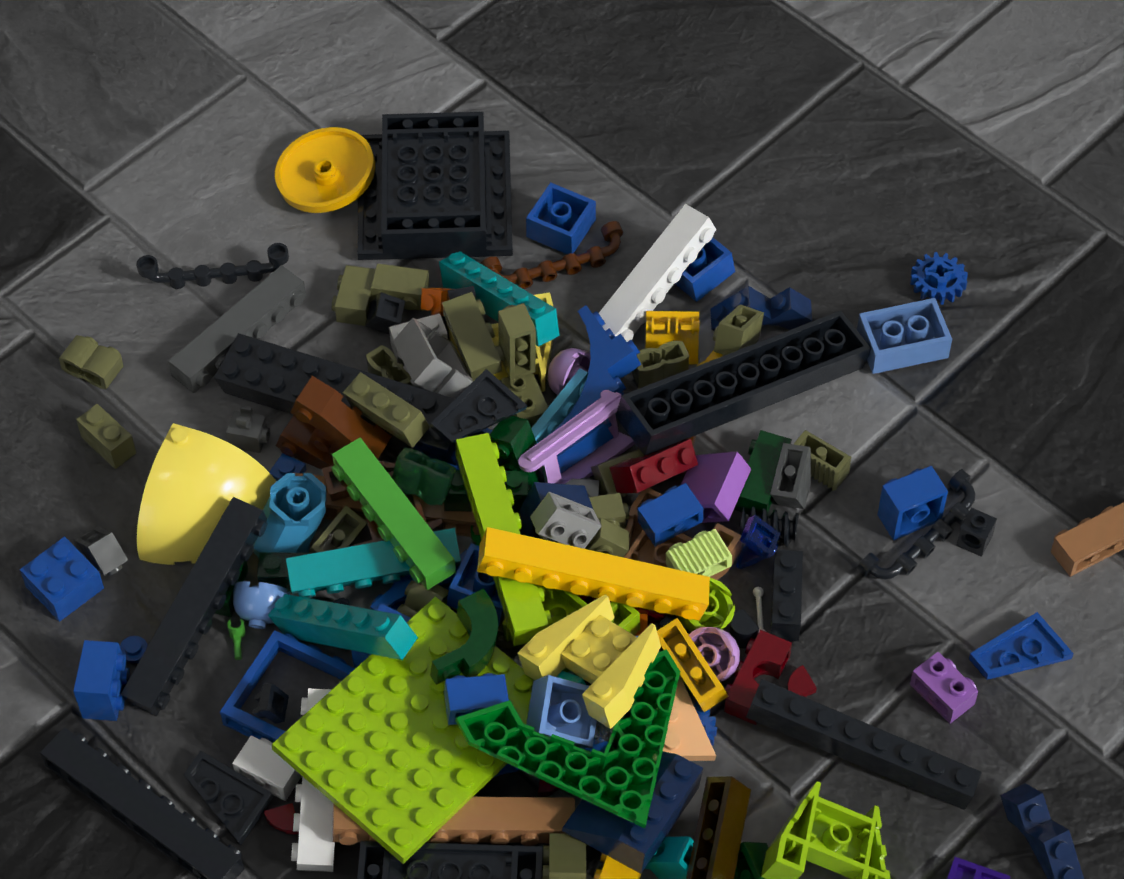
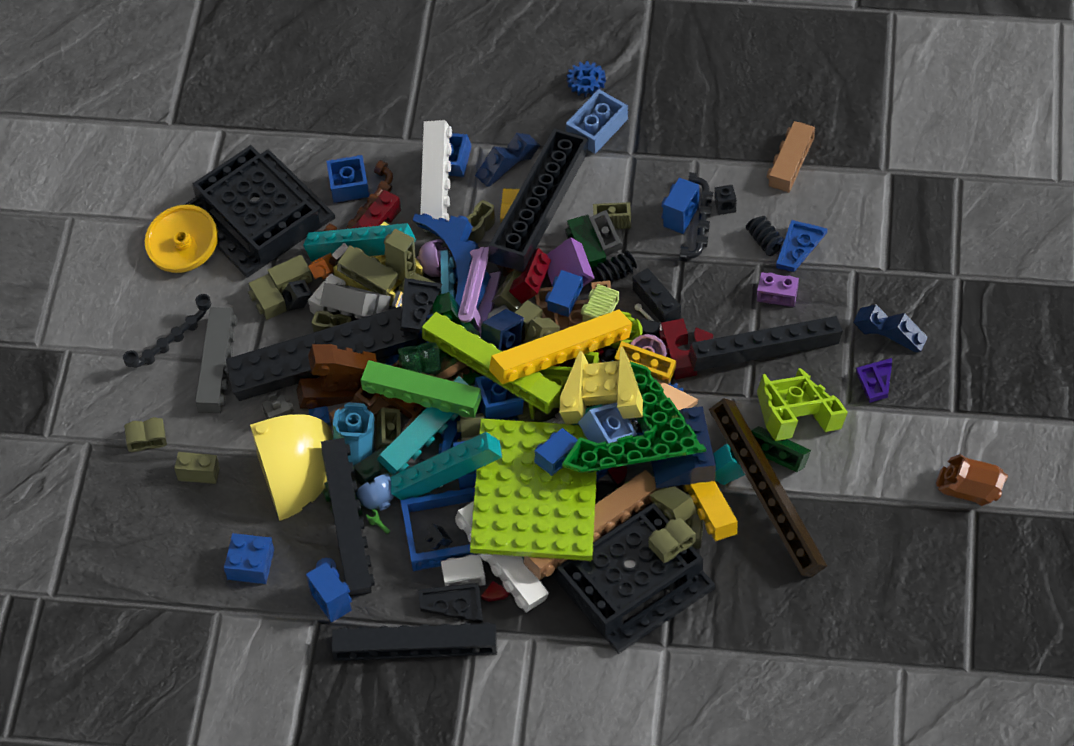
camera: 35 degrees left, 0 degrees up
(102, 550) = (257, 525): dark grey slope -> none
(386, 409) = (366, 337): olive brick -> none
(481, 622) = (526, 415): dark green arch -> none
(565, 521) = (517, 331): light grey brick -> none
(569, 277) = (385, 208): none -> dark red arch
(674, 326) = (468, 197): yellow hinge -> none
(738, 330) = (509, 175): olive brick -> none
(759, 542) = (622, 277): clear blue bracket -> none
(987, 609) = (765, 235): none -> black piece

